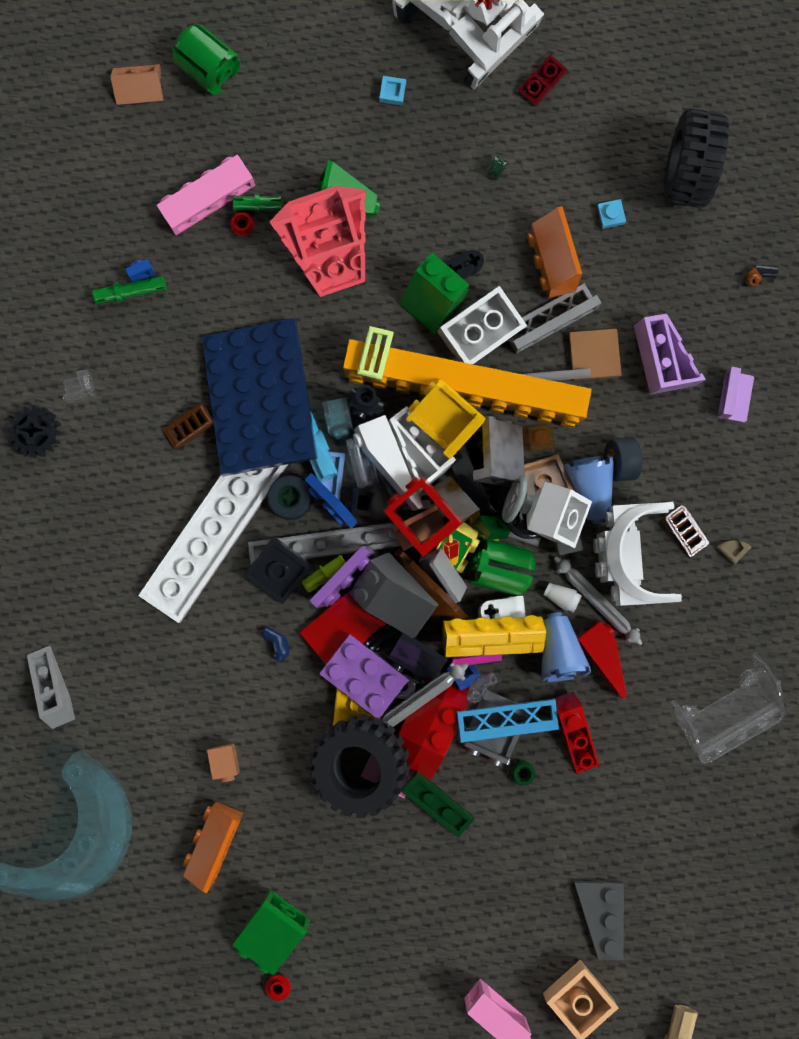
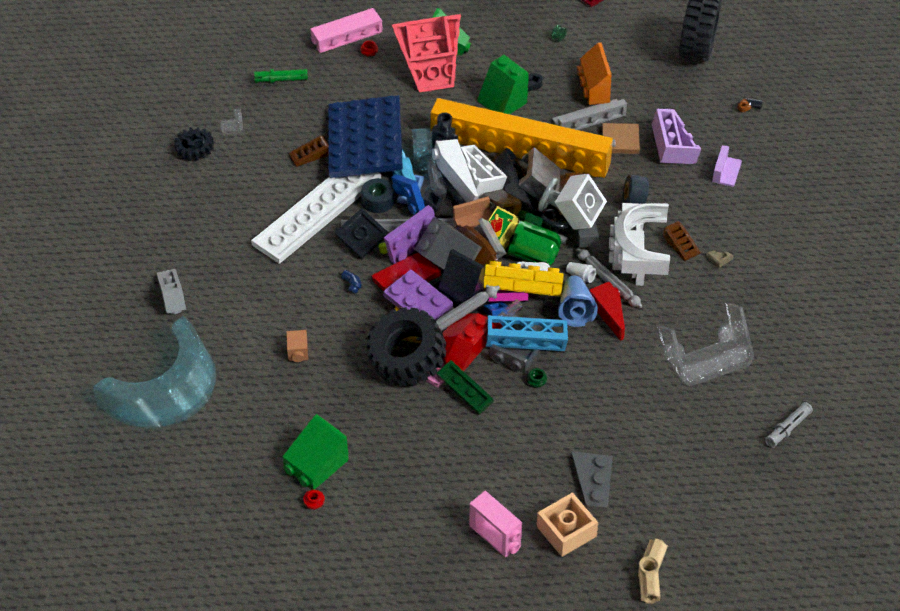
camera: 10 degrees right, 35 degrees down
(140, 270) = (291, 63): blue plate -> none
(211, 845) = (280, 394): orange slope -> none
(256, 203) = (381, 38): green pin -> none
(370, 374) = (456, 116): yellowish green tile -> none
(414, 485) = (487, 205): red window -> none
(445, 417) = (501, 144): yellow panel -> none
(482, 327) = (537, 105): white slope -> none
(576, 732) = (583, 354): red slope -> none
(593, 481) = (615, 195): medium blue cone -> none
(611, 214) = (640, 64): medium azure plate -> none

